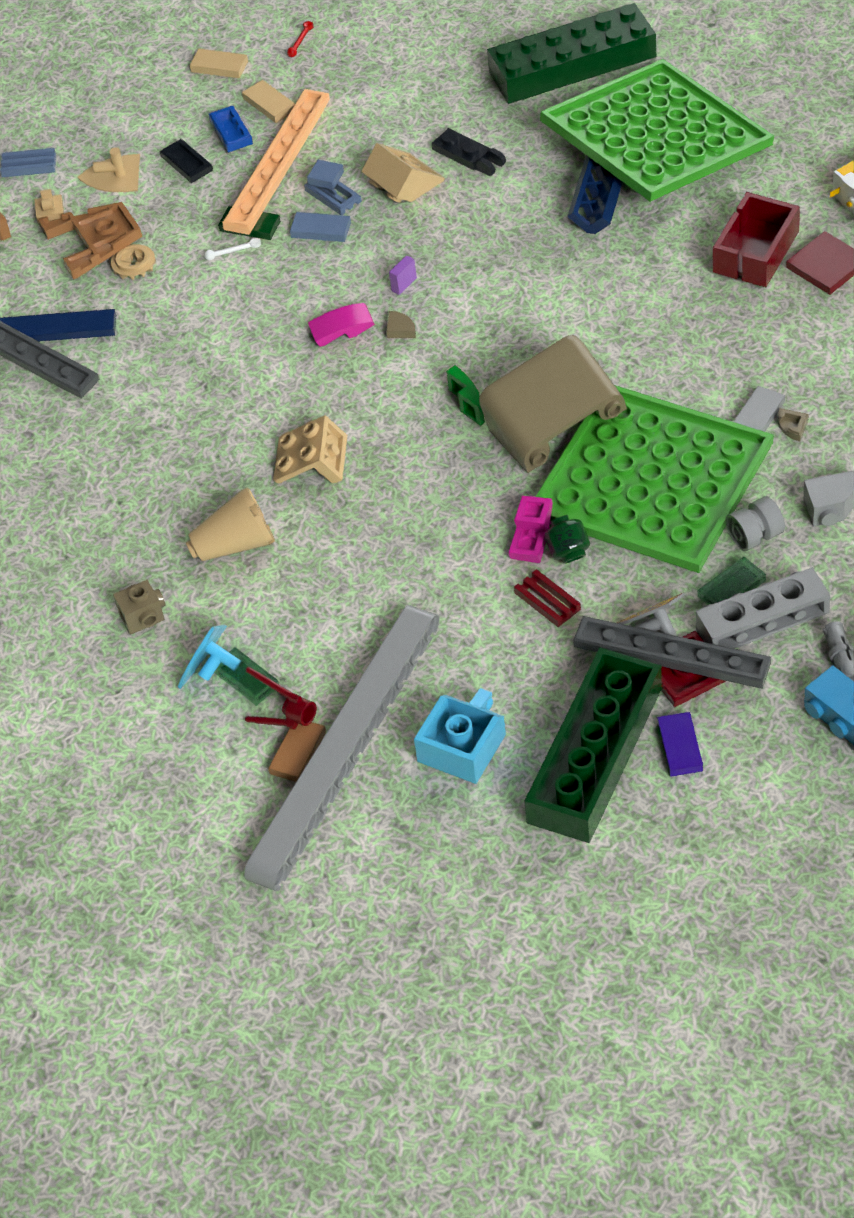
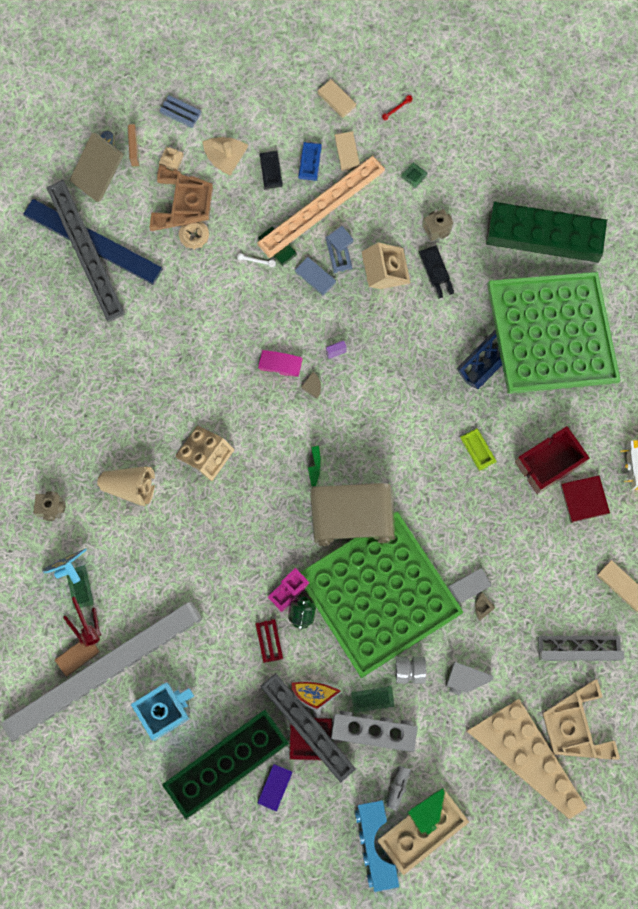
camera: 25 degrees right, 25 degrees up
(370, 84) = (414, 175): none -> clear green tile
(435, 106) = (437, 224): none -> dark tan brick
(657, 283) = (478, 449): none -> lime tile

